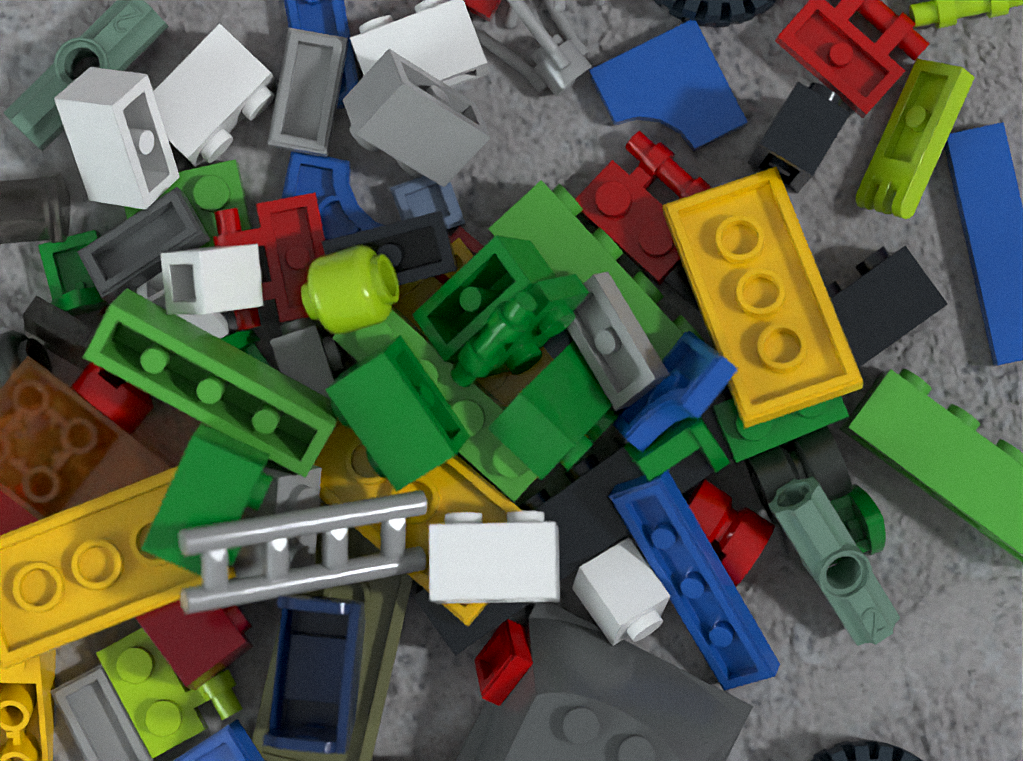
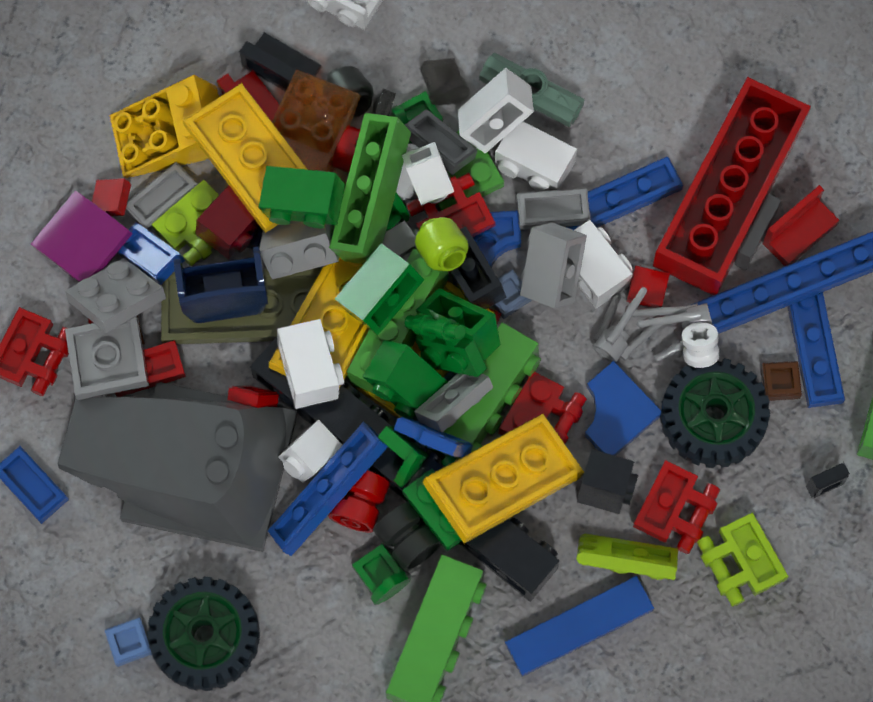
camera: 75 degrees right, 15 degrees down
(274, 533) = (295, 233): light grey bar -> none
(821, 539) = (372, 549): sand green piece -> none

